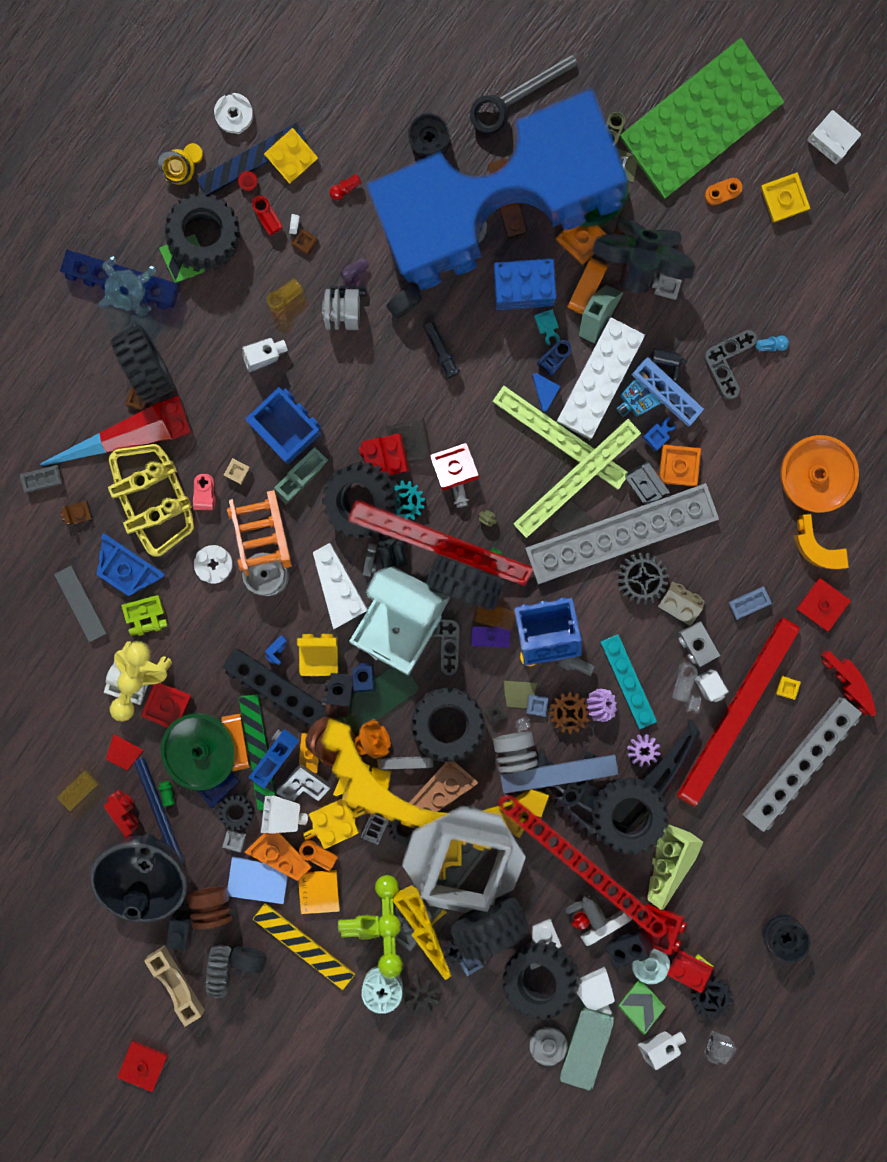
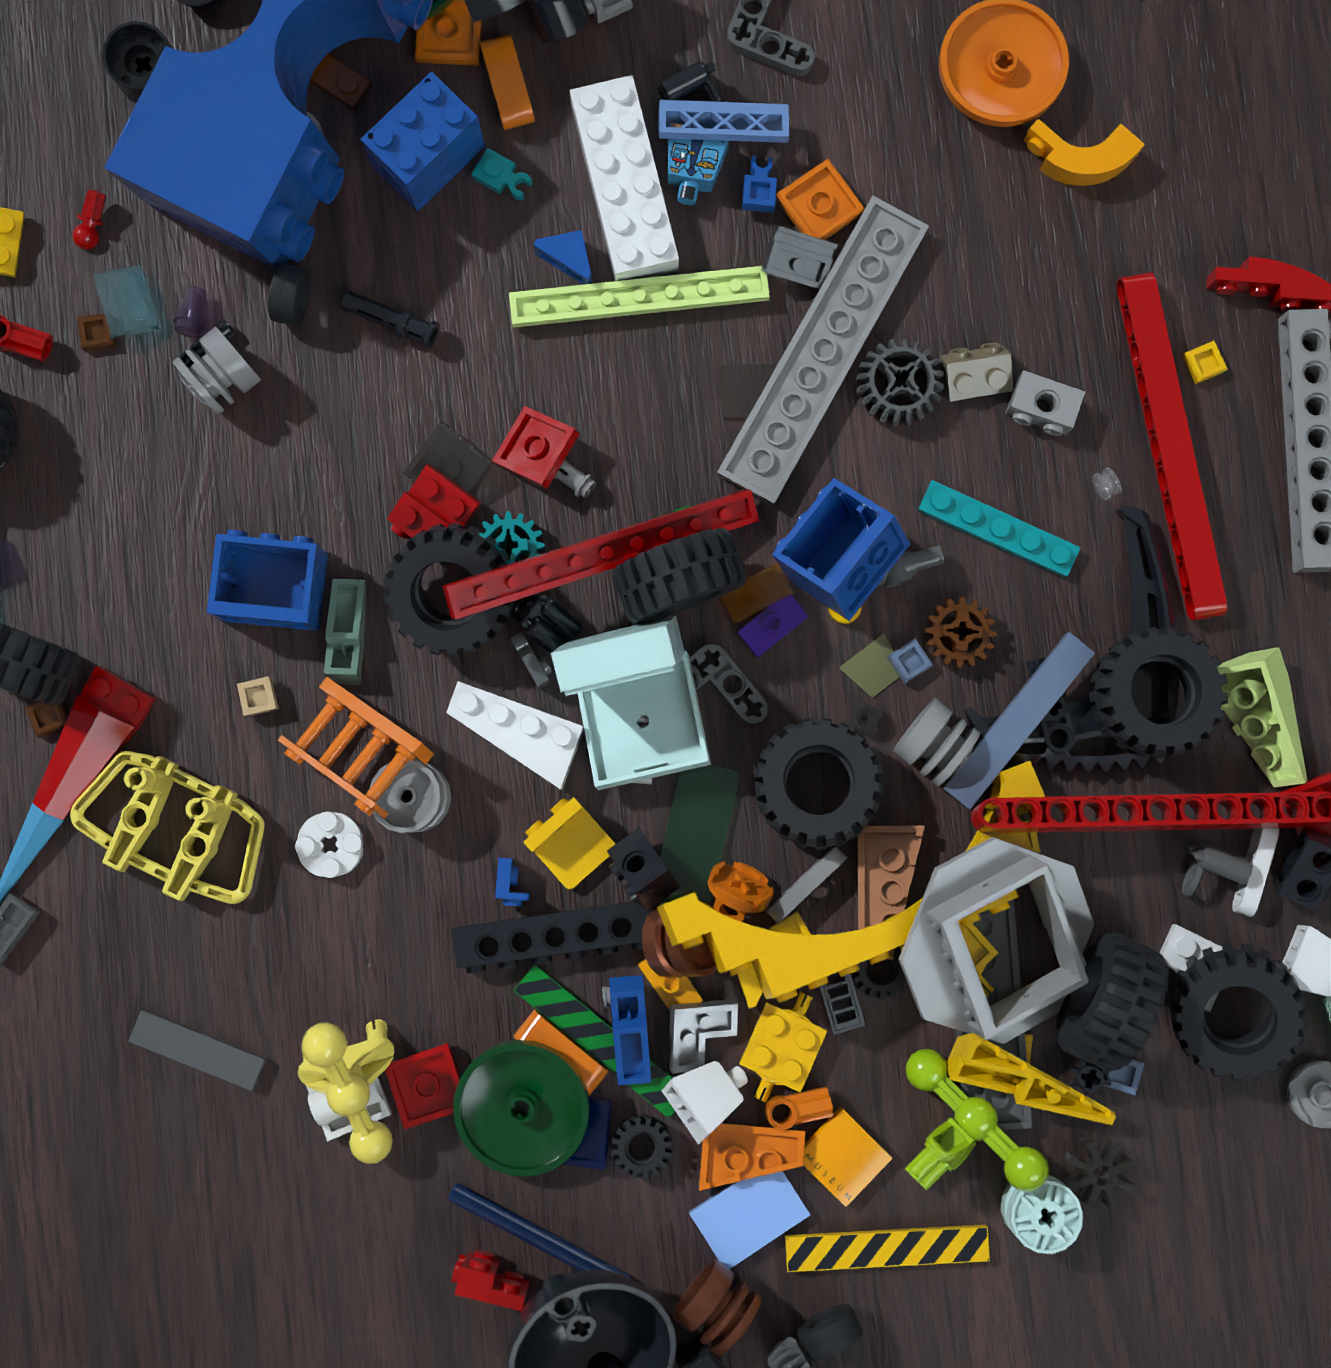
camera: 45 degrees left, 5 degrees down
(76, 513) = (90, 935): reddish brown bracket -> none
(77, 790) = (405, 1305): clear yellow plate -> none
(122, 752) = (422, 1201): red sticker -> none
(125, 568) = (217, 950): blue wing -> none
(144, 609) = (287, 984): lime plate -> none
(166, 793) = (527, 1203): green pin -> none
(204, 497) = (241, 766): coral piece -> none
(234, 840) = (672, 1187): light grey tile -> none
(256, 358) = (160, 516): white torso -> none
(286, 294) = (127, 416): clear yellow piece -> none
(294, 224) = (63, 319): white tile -> none
(329, 239) = (125, 301): none -> clear light blue plate
(367, 686) = (670, 824): dark blue brick -> none
(487, 518) = (635, 476): olive plate -> none
(522, 724) = (913, 701): clear plate -> none
(554, 357) = (543, 206): dark blue piece -> none
(577, 478) = (705, 326): yellowish green plate -> none
(580, 921) = (1215, 890): red plate -> none
(598, 313) = (550, 103): sand green slope -> none
(601, 705) = (992, 586): lavender gear -> none
(643, 757) = (1090, 586): lavender gear -> none
(684, 683) = (1071, 470): clear piece -> none
(711, 685) = (1108, 439): white brick -> none
(750, 603) = (1061, 297): sand blue plate -> none
(823, 604) = (1154, 221): red plate -> none

